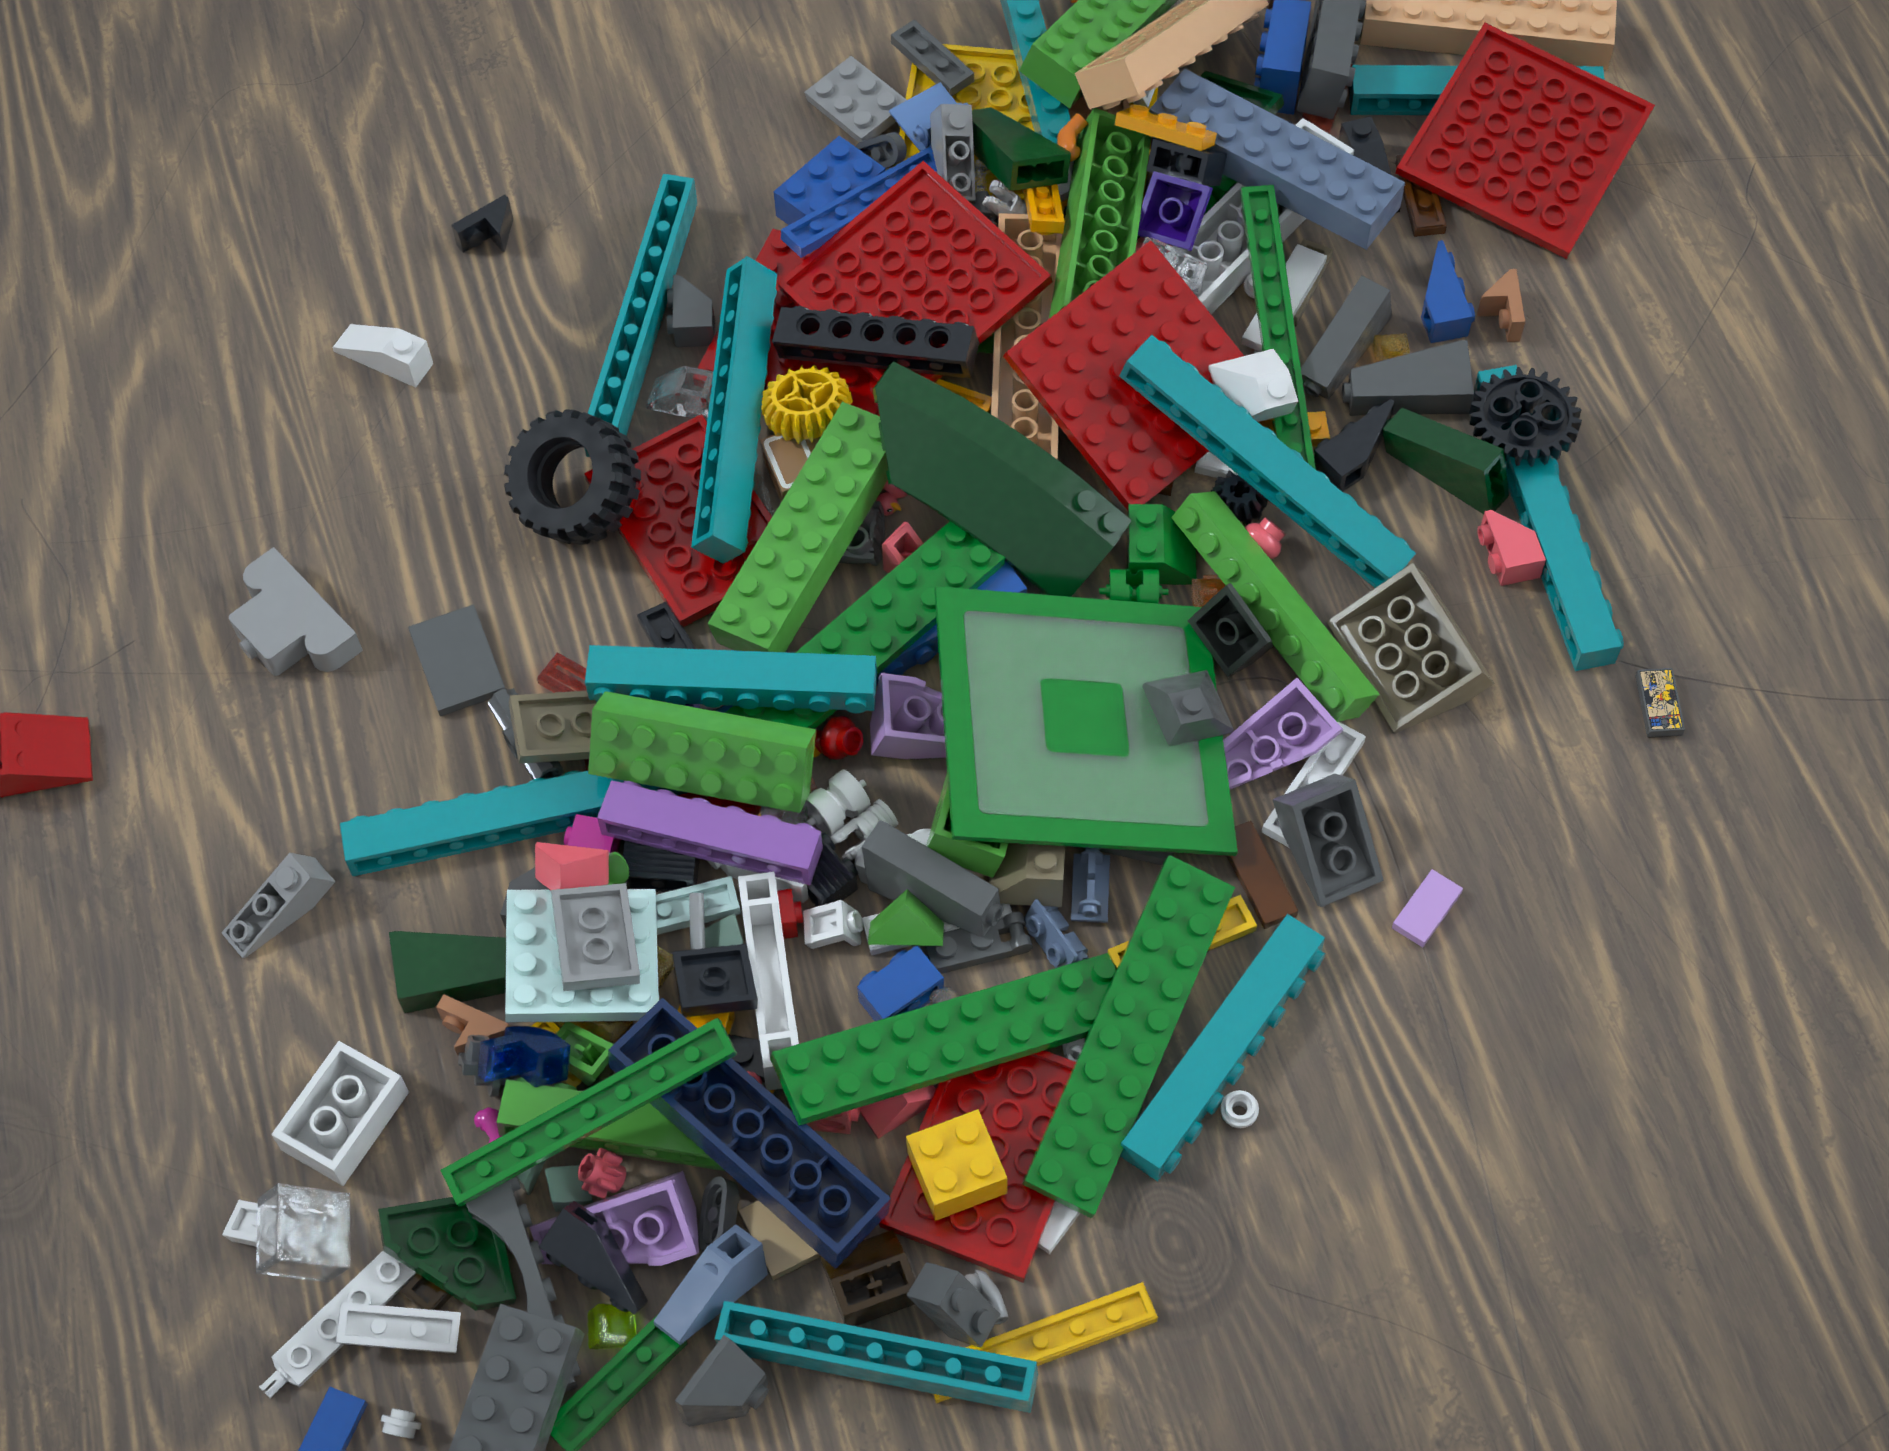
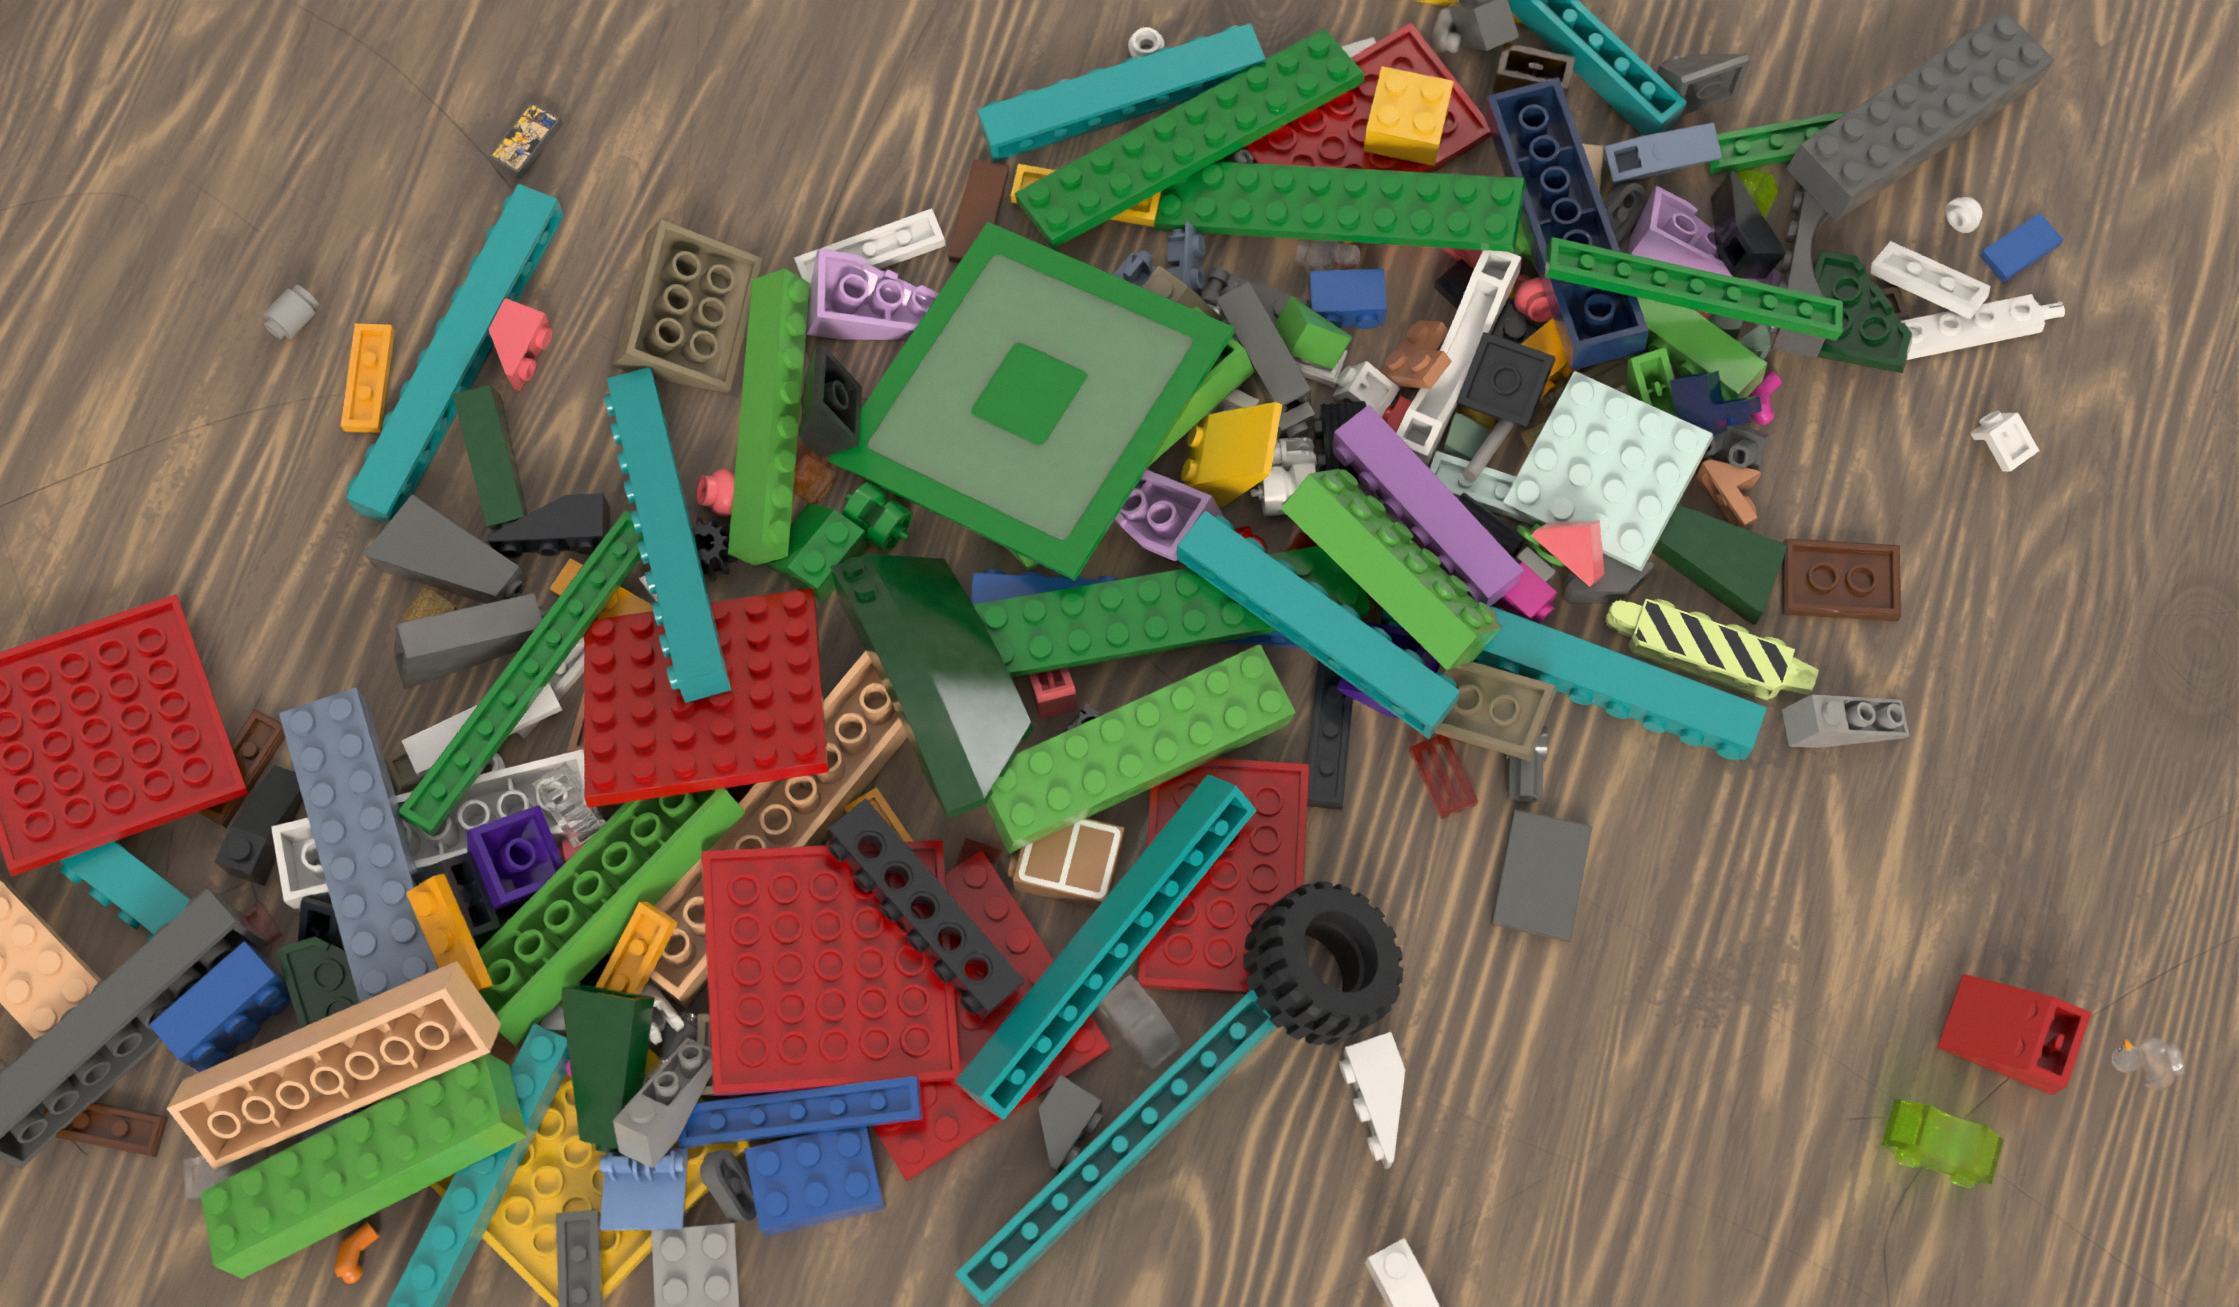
camera: 145 degrees left, 10 degrees up
(52, 649) = (1942, 1143): none -> clear neon green brick
(289, 620) = (1684, 1022): light grey brick -> none
(303, 1233) = (1974, 390): clear brick -> none
(340, 1113) = (1888, 480): white brick -> none
(353, 1012) = (1841, 580): none -> reddish brown tile
(418, 891) = (1710, 649): none -> yellowish green hinge
(483, 447) = (1378, 1079): none -> white slope
(595, 937) = (1593, 456): light grey plate -> none
(803, 402) = (1003, 892): yellow gear -> none
(812, 967) = (1416, 359): none -> nougat plate
(896, 780) = (1232, 451): none -> yellow slope
(1068, 134) = (544, 1021): orange arm -> none
(1187, 708) = (928, 358): dark grey slope -> none
(1257, 383) = (609, 609): white slope -> none
(1329, 837) = (901, 190): dark grey slope -> none
(1427, 908) = (867, 101): lavender tile -> none
(1445, 307) = (339, 624): blue slope -> none
(1505, 301) = (279, 585): nougat slope -> none
(1525, 416) = (396, 427): black gear -> none
(1599, 469) = (368, 378): none -> light orange plate
(1692, 466) = (290, 312): none -> light grey brick

